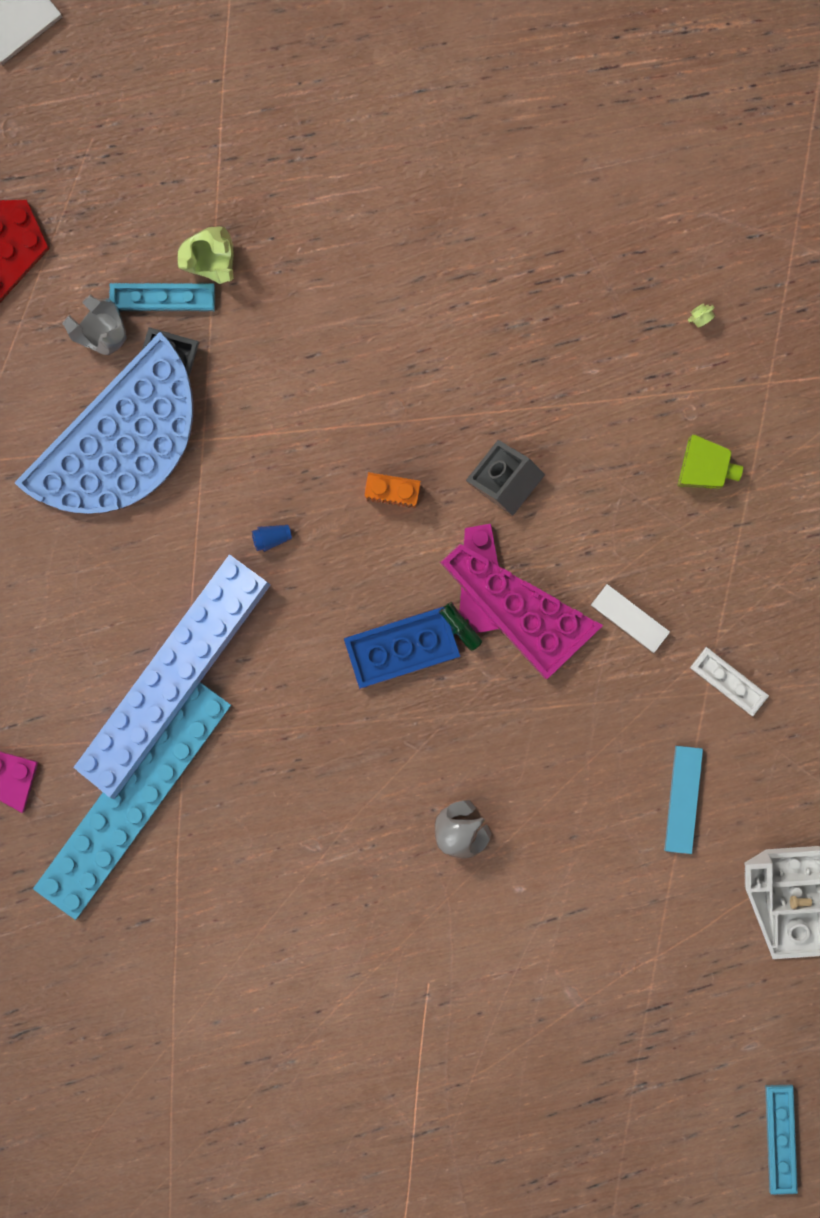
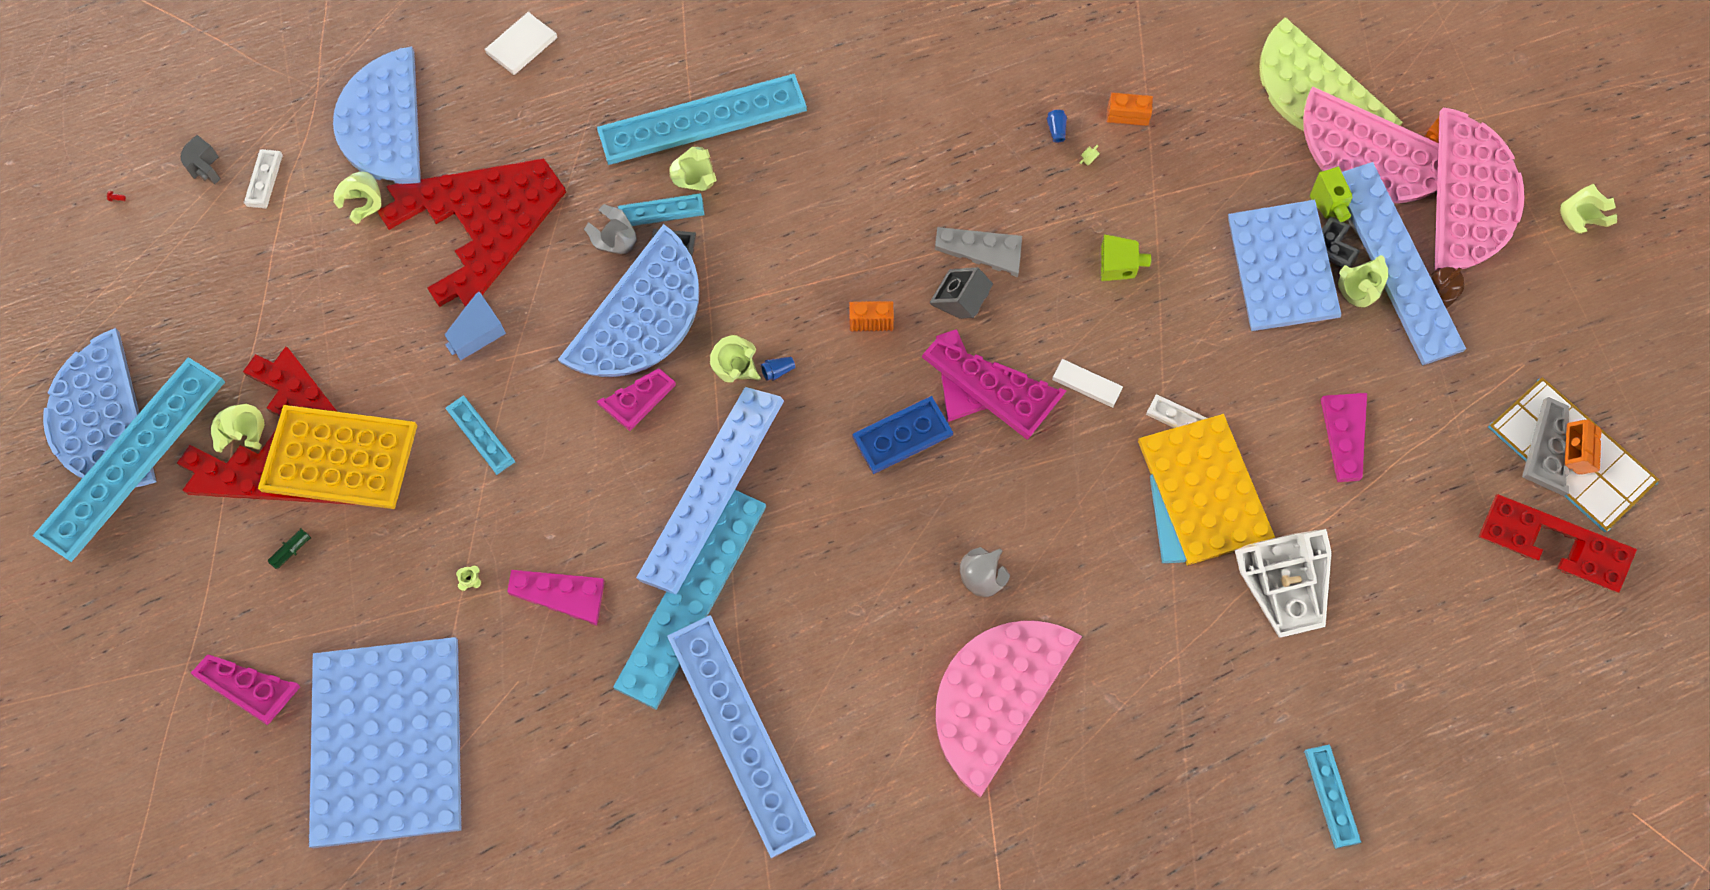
camera: 10 degrees left, 20 degrees down
(100, 549) = (637, 400): none -> dark pink wing
(162, 968) = (741, 737): none -> light blue plate
(219, 523) = (733, 359): none -> yellowish green piece
(229, 176) = (701, 119): none -> medium azure plate
(447, 964) = (994, 693): none -> bright pink plate
(460, 626) = (948, 407): dark green axle -> none
(549, 420) = (991, 249): none -> light grey wing
(671, 264) = (1057, 125): none -> blue cone
(734, 773) = (1206, 488): none -> yellow plate
(766, 258) = (1129, 109): none -> orange brick

